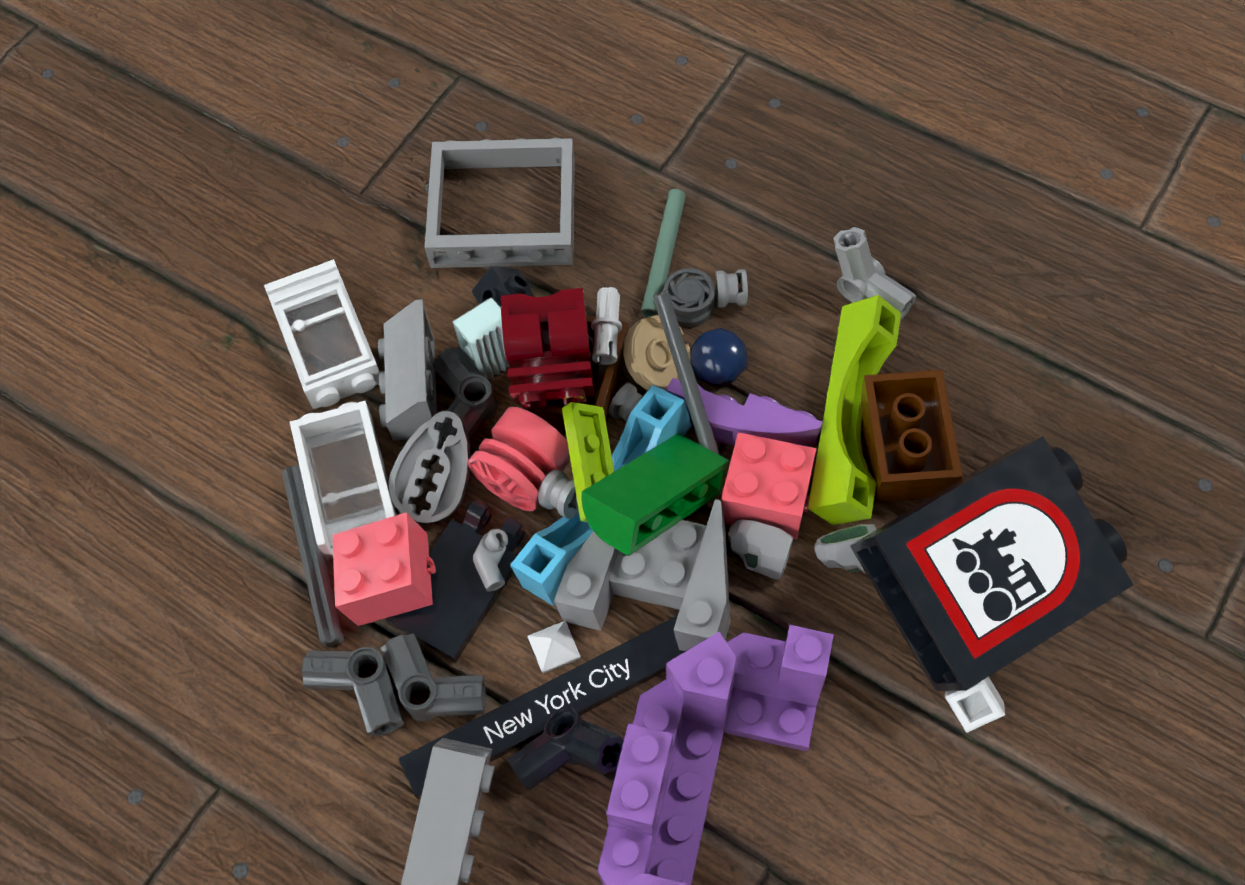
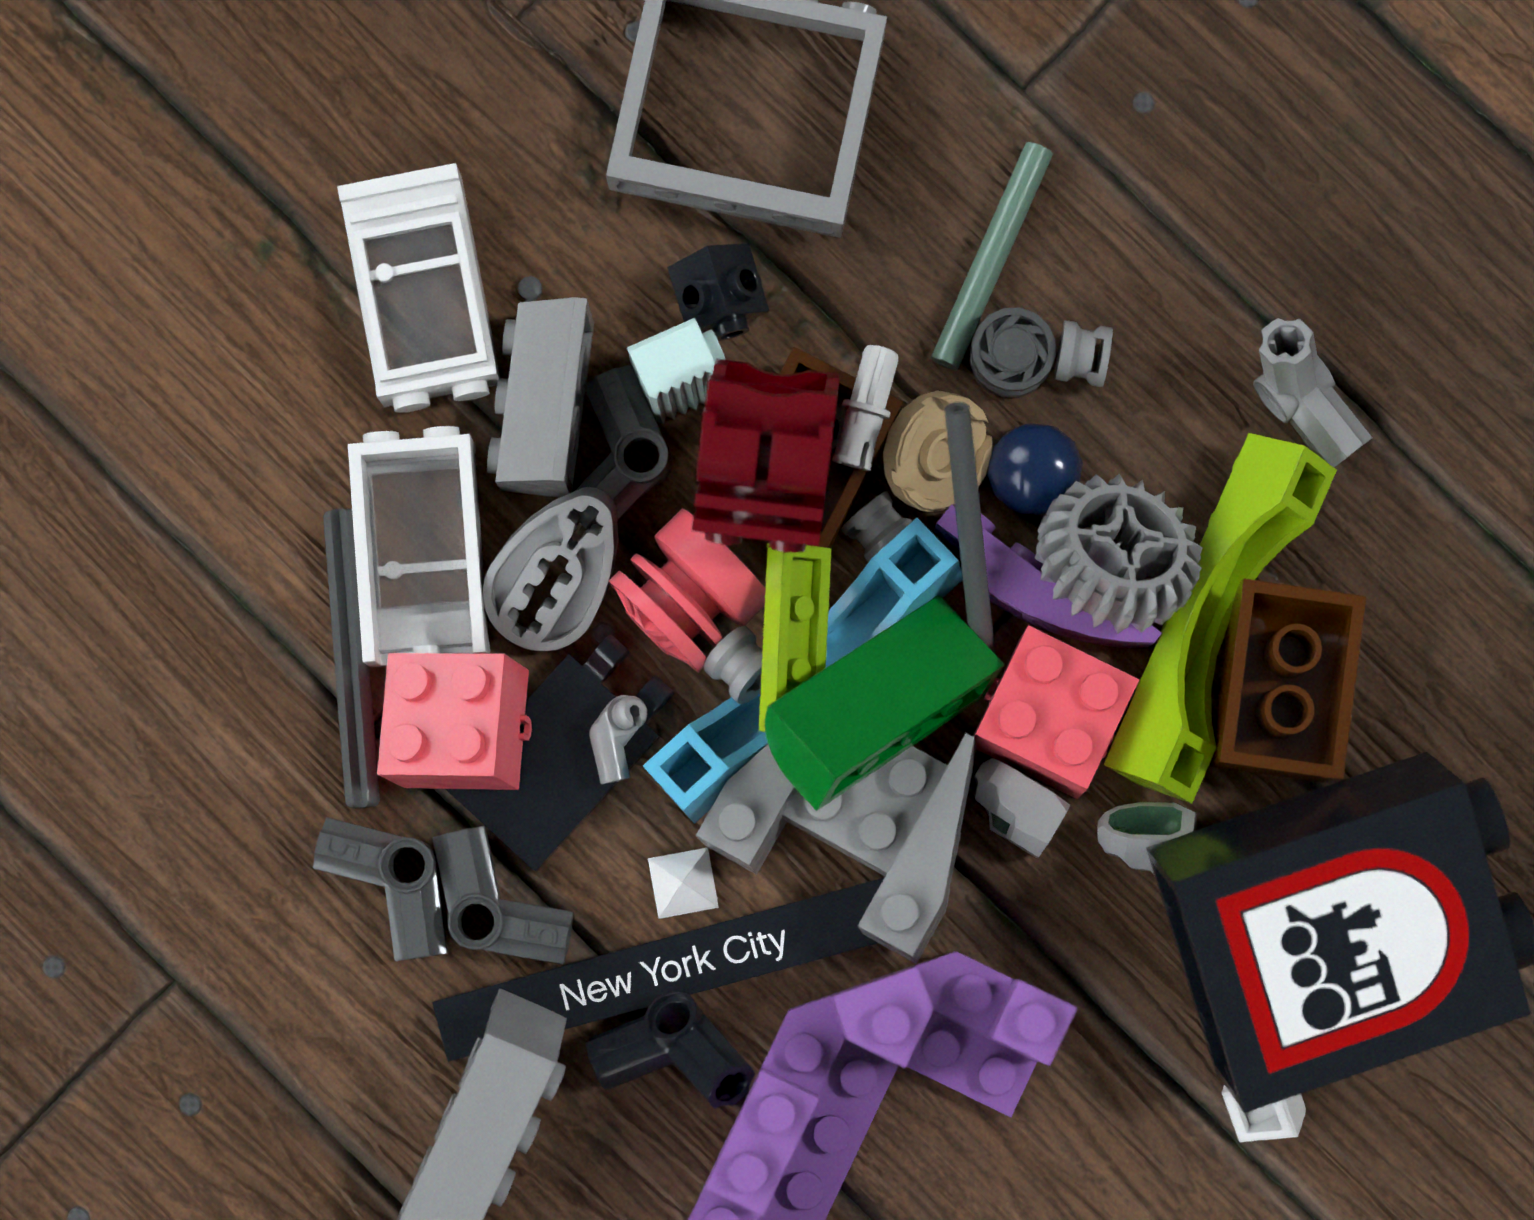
camera: 10 degrees right, 20 degrees up
(782, 379) = (1127, 541): none -> light grey gear

